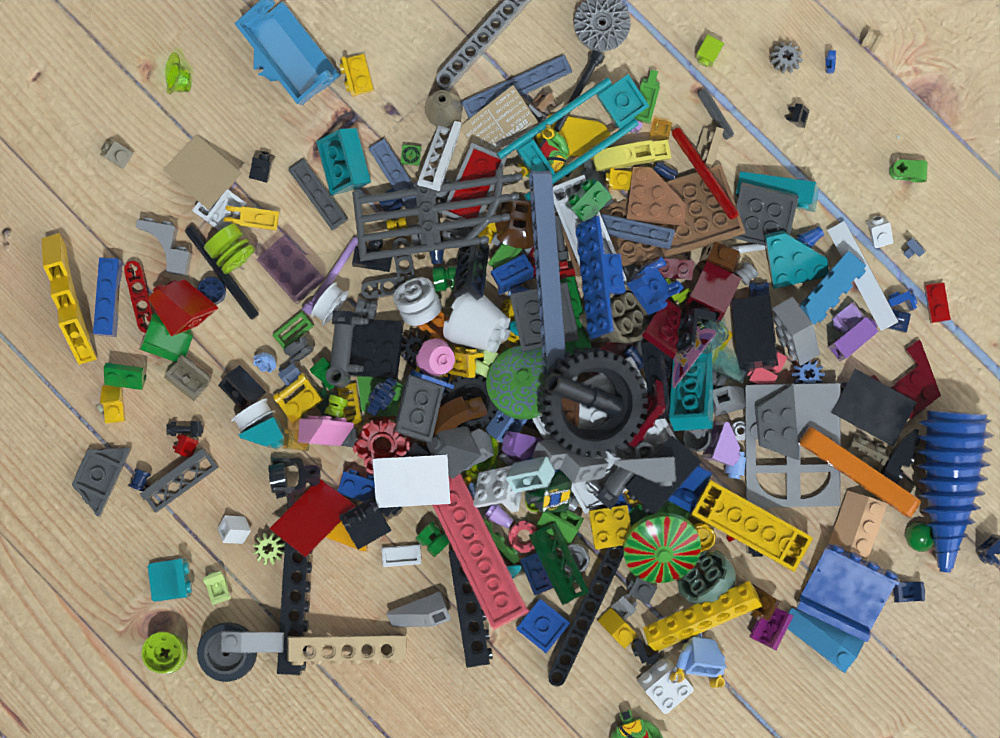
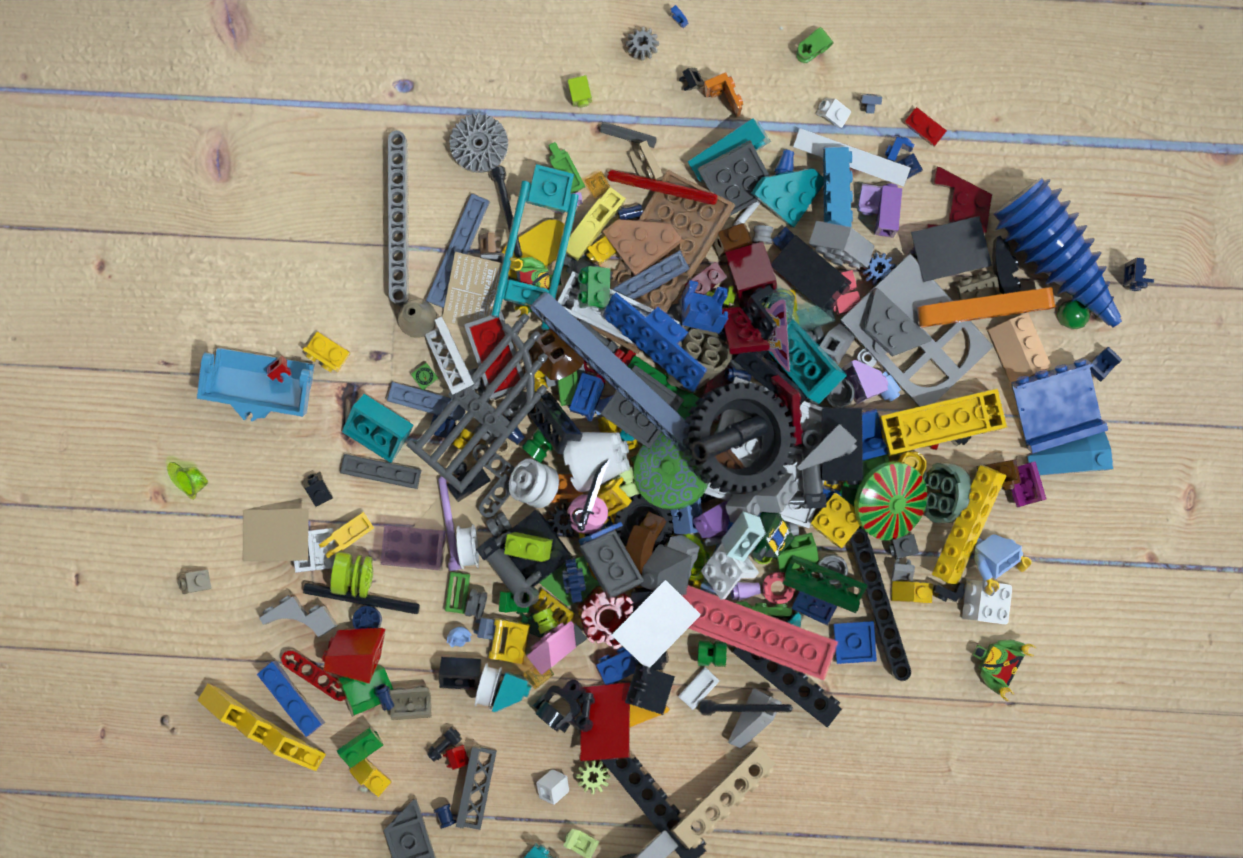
camera: 40 degrees left, 0 degrees up
(175, 351) = (384, 697): none -> dark blue pin
(297, 502) = (583, 720): none -> black bar
(312, 54) = (278, 367): none -> red tile
(371, 342) = (528, 546): none -> lime brick
(396, 575) = (708, 707): none -> black piece
(435, 354) = (587, 510): none -> sword
(813, 135) = (715, 86): none -> orange bracket

